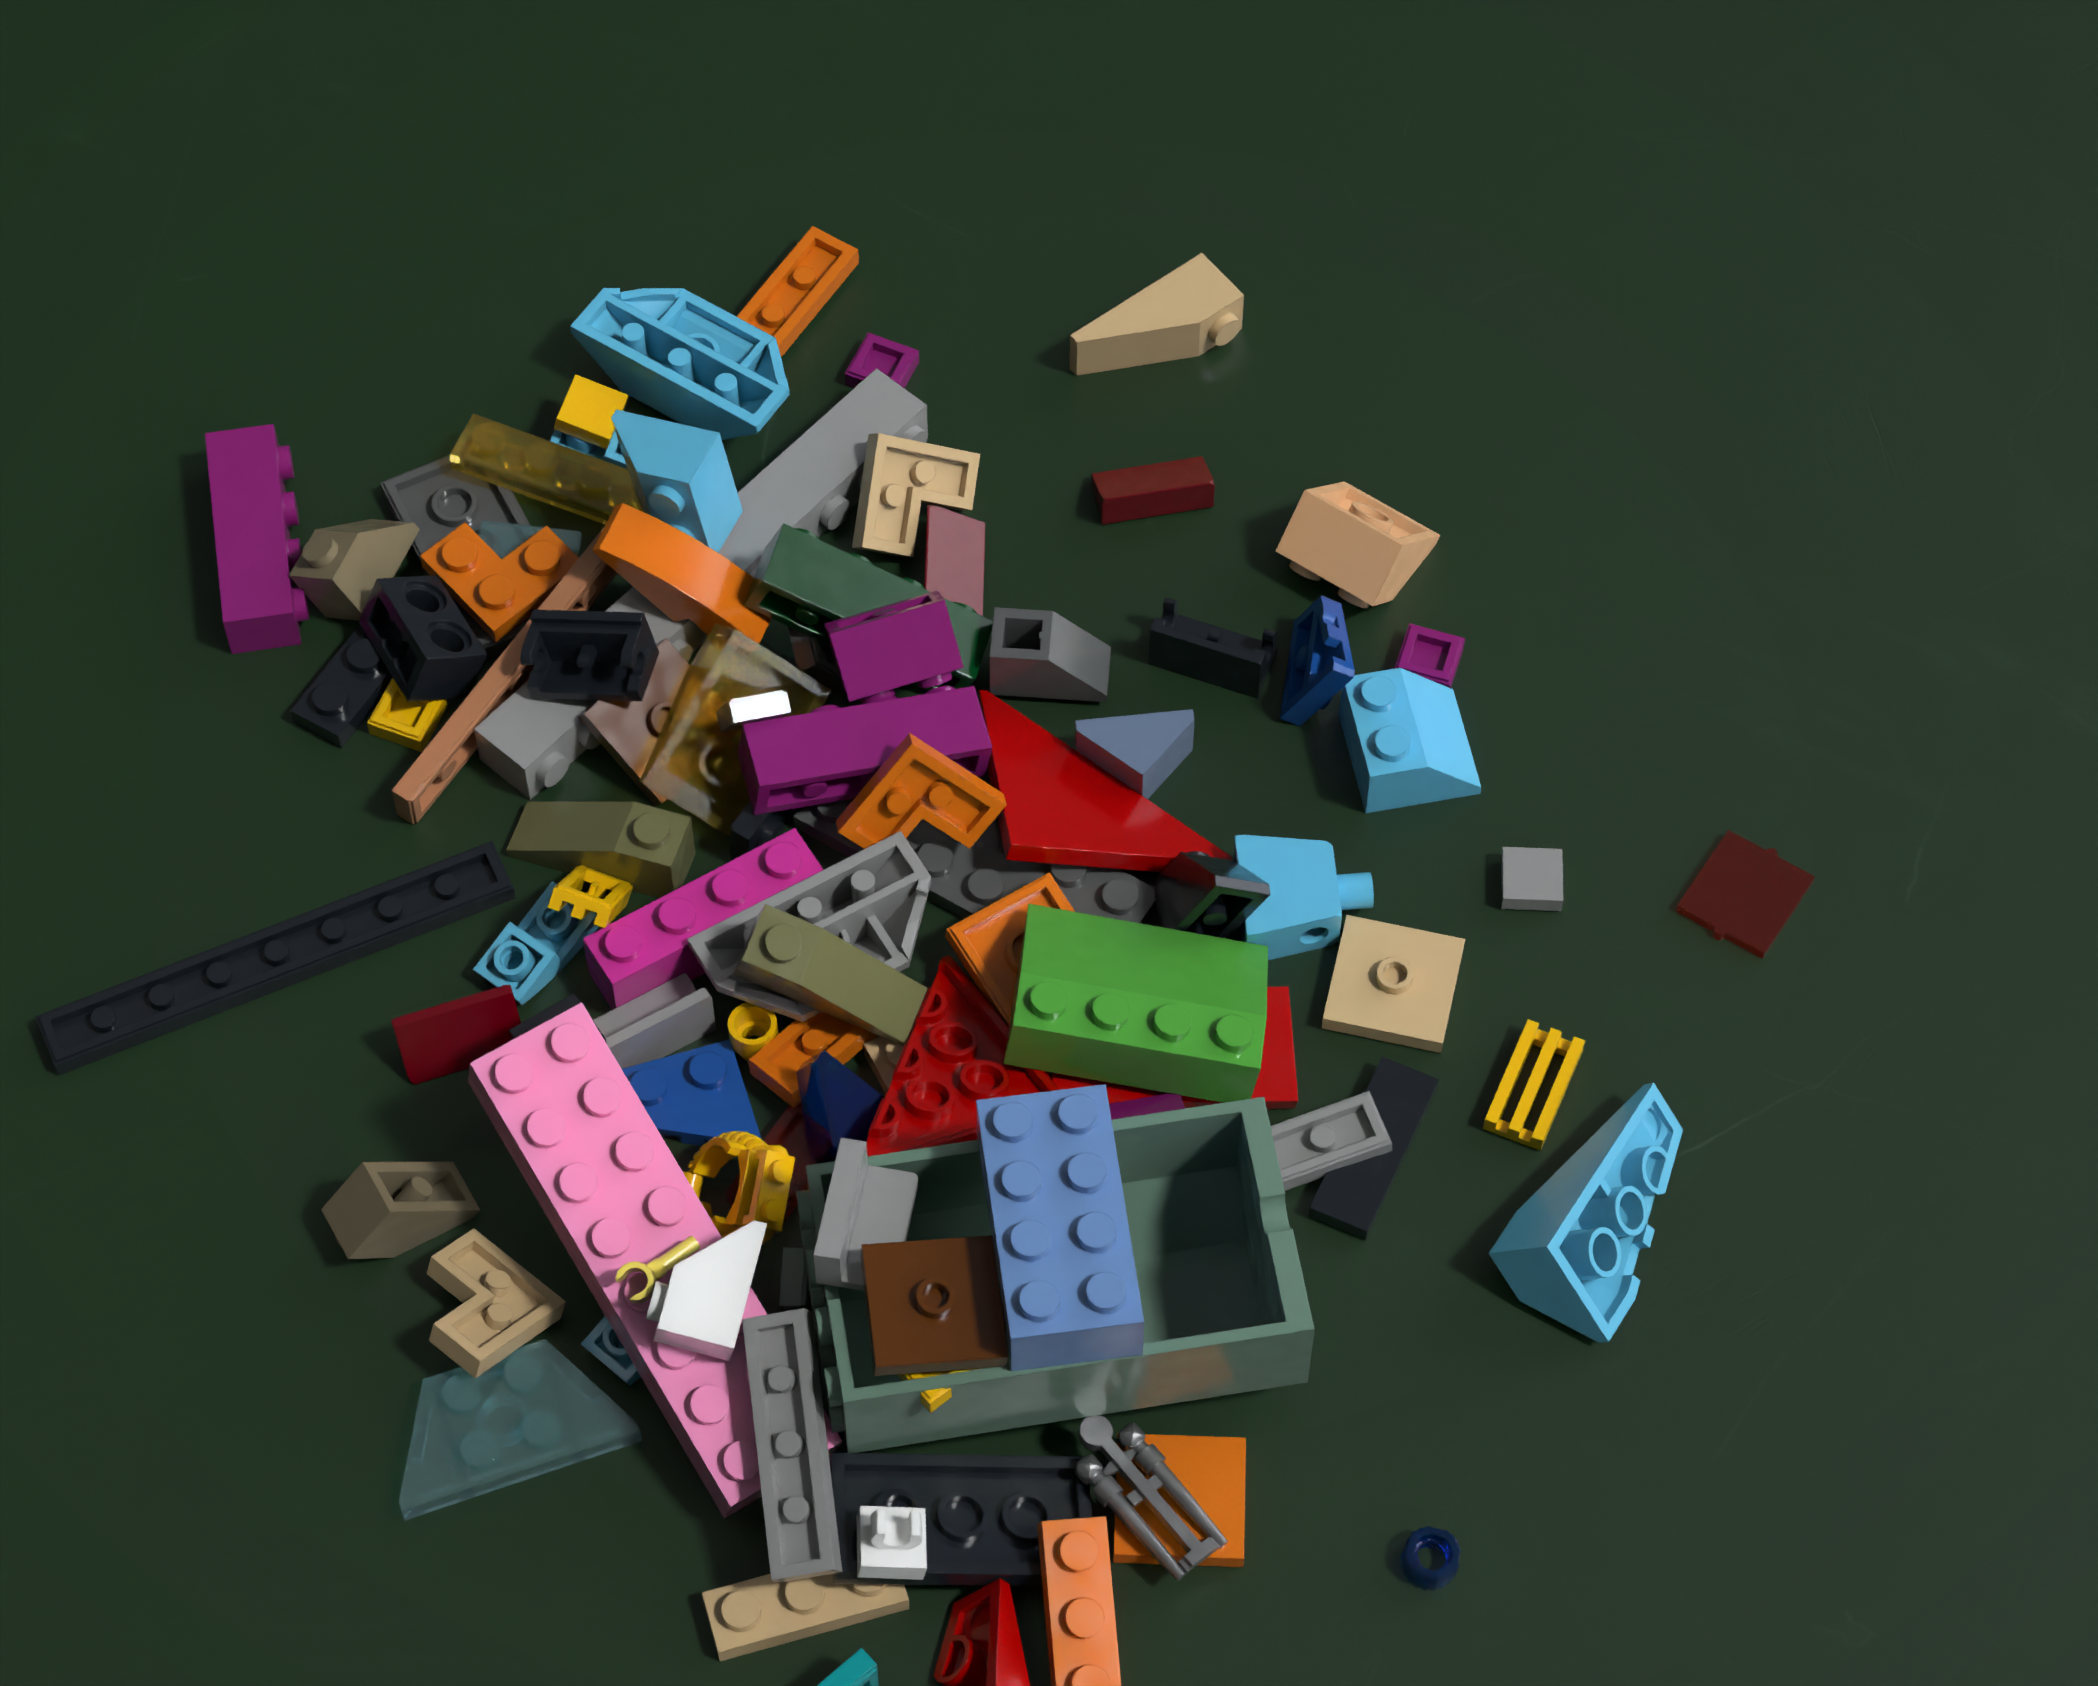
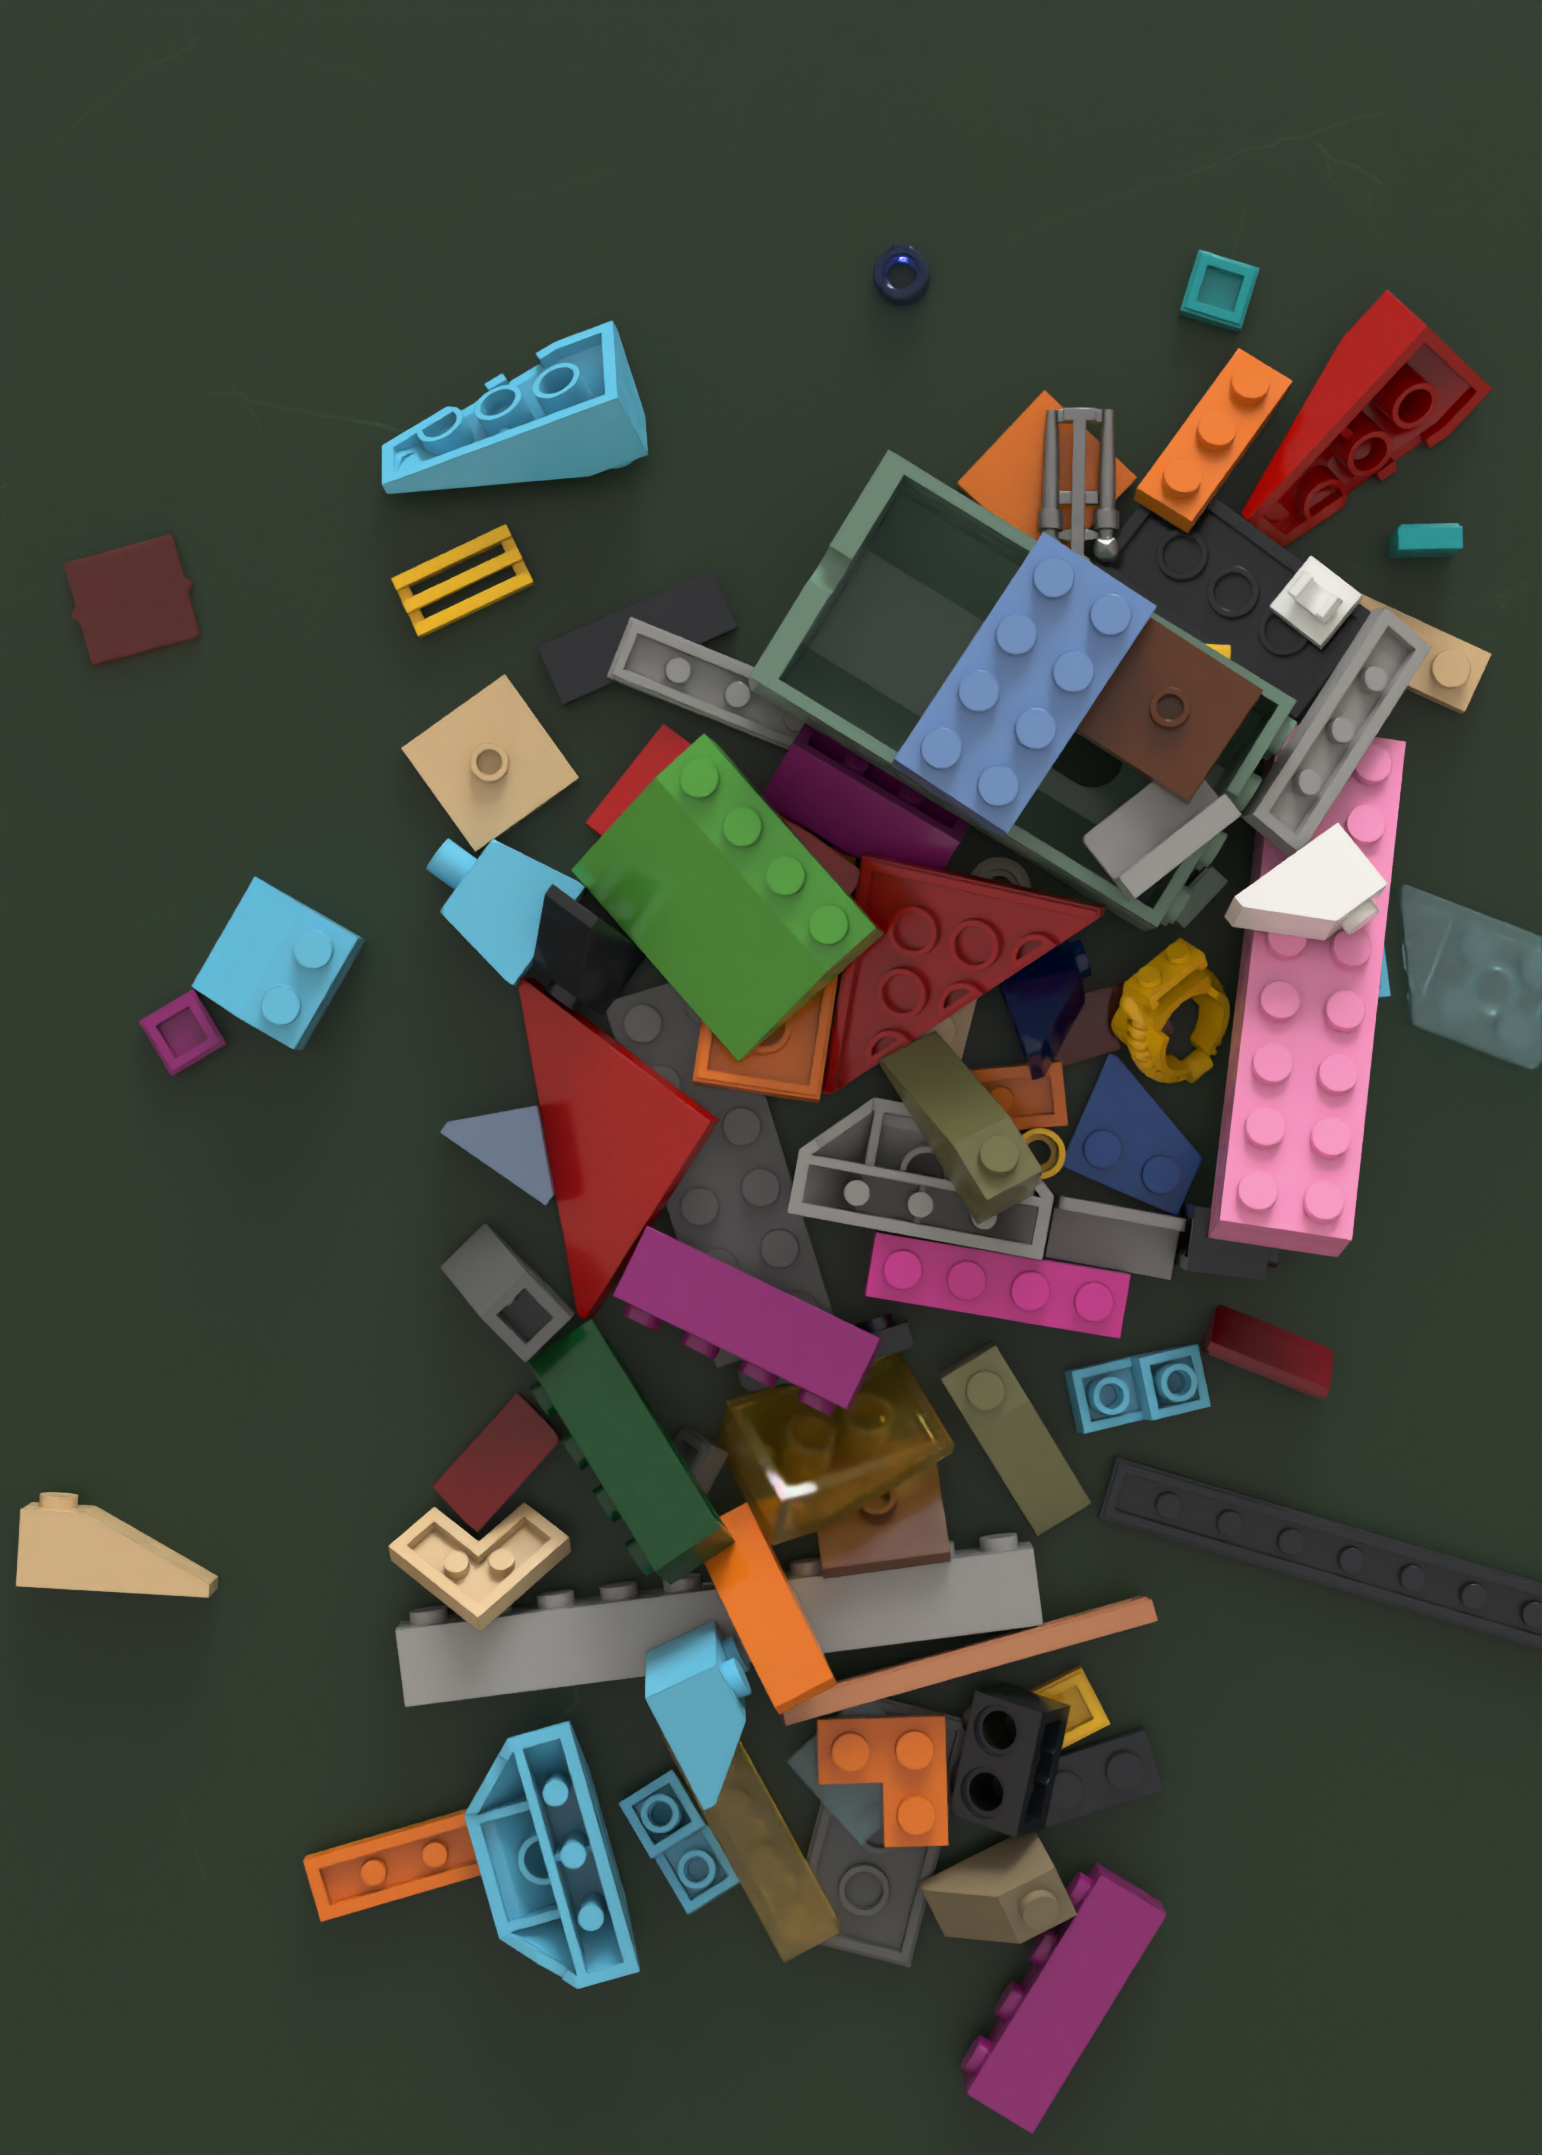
camera: 140 degrees left, 30 degrees up
(397, 1207) = (1437, 1232): dark tan slope -> none
(499, 1308) = (1423, 1074): tan plate -> none
(589, 411) = (682, 1877): yellow tile -> none
(589, 655) = (908, 1597): black hinge -> none
(607, 909) = (1102, 1362): yellow tile -> none
(657, 1267) = (1342, 951): light yellow hand -> none
(752, 709) = (823, 1418): tile -> none
(887, 356) = (381, 1725): magenta tile -> none
(894, 647) = (653, 1383): magenta brick -> none
(918, 786) = (741, 1234): orange plate -> none
(1153, 490) = (260, 1399): dark red slope -> none
(1211, 652) = (356, 1192): black hinge -> none
(1317, 661) = (287, 1097): blue wing -> none
(1354, 543) = (143, 1187): light nougat slope -> none
(1531, 878) = (293, 759): light grey tile -> none

